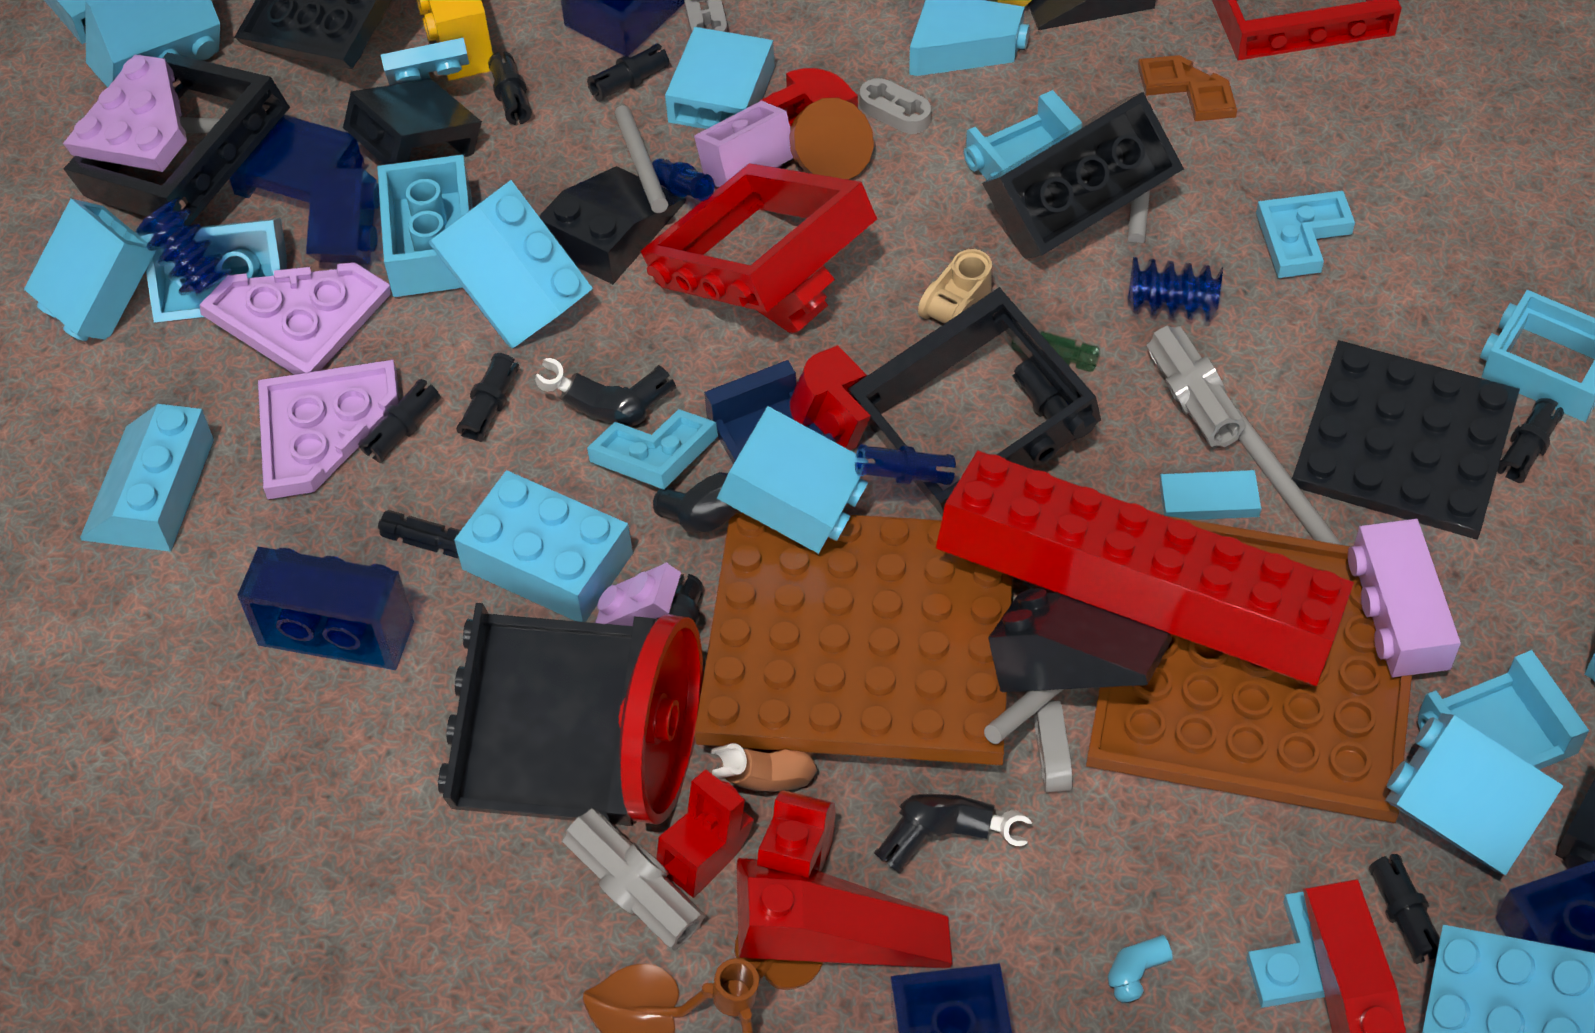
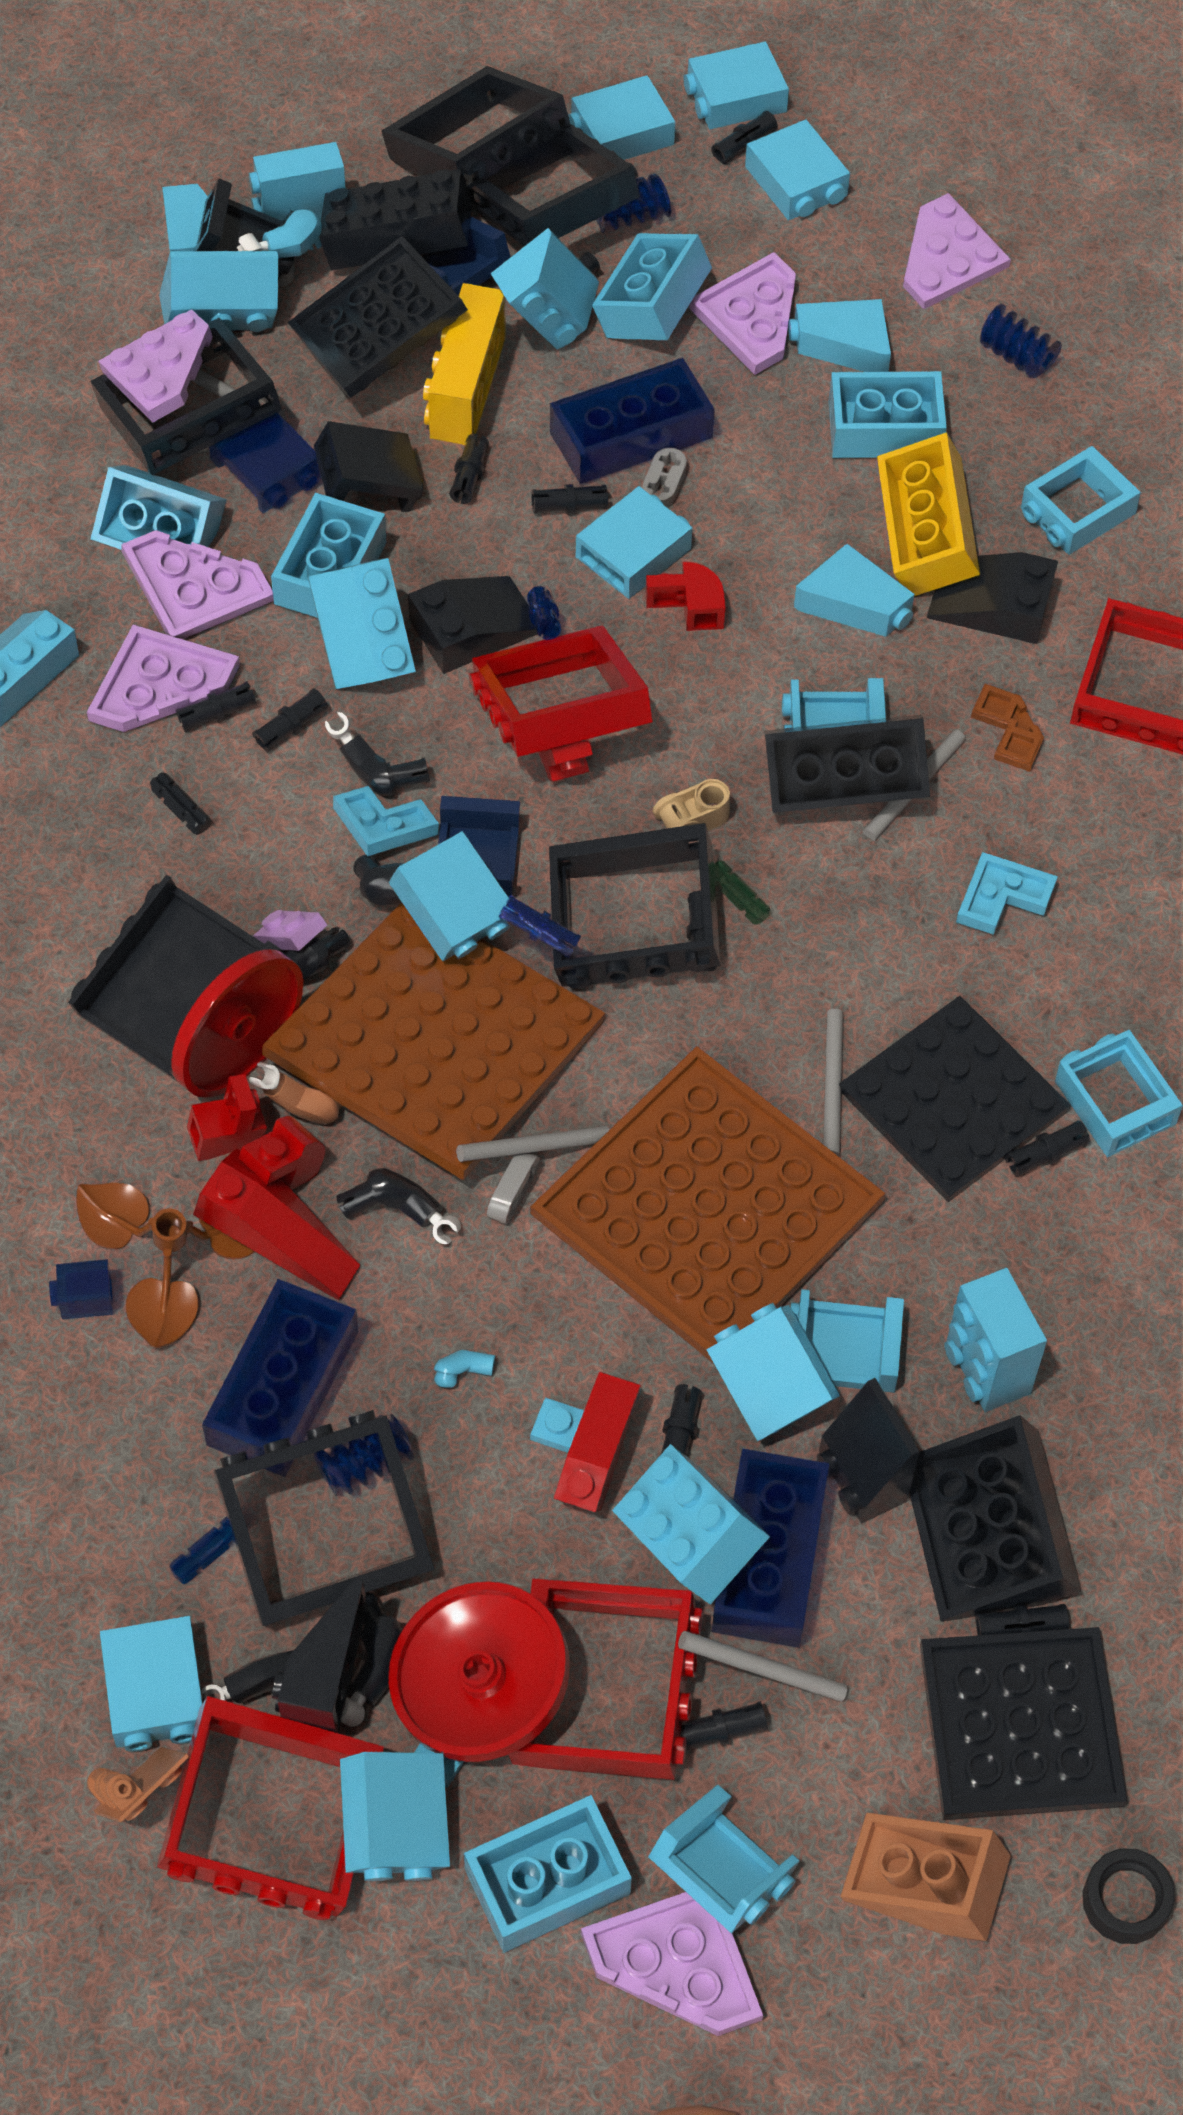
camera: 25 degrees right, 5 degrees up
(88, 270) = (60, 476): medium azure brick -> none
(182, 249) = (130, 495): clear blue piece -> none
(326, 607) = (72, 825): clear blue brick -> none
(342, 216) = (267, 520): clear blue brick -> none
(417, 62) = (402, 418): medium azure plate -> none
(544, 546) = (254, 856): medium azure brick -> none
(633, 878) = (161, 1125): light grey piece -> none
(641, 159) = (527, 579): light grey bar -> none
(751, 136) = (617, 604): lavender brick -> none
(825, 399) = (529, 843): red brick -> none
(831, 139) = (681, 636): dark orange tile -> none
(893, 107) = (753, 632): light grey beam -> none
(1069, 644) = (566, 1119): black slope -> none
(1145, 566) = (657, 1090): red brick -> none
(1174, 289) = (858, 893): clear blue piece -> none
(1196, 386) = (817, 975): light grey piece -> none
(1210, 495) = (769, 1065): medium azure tile -> none
(1404, 598) = (836, 1211): lavender brick -> none

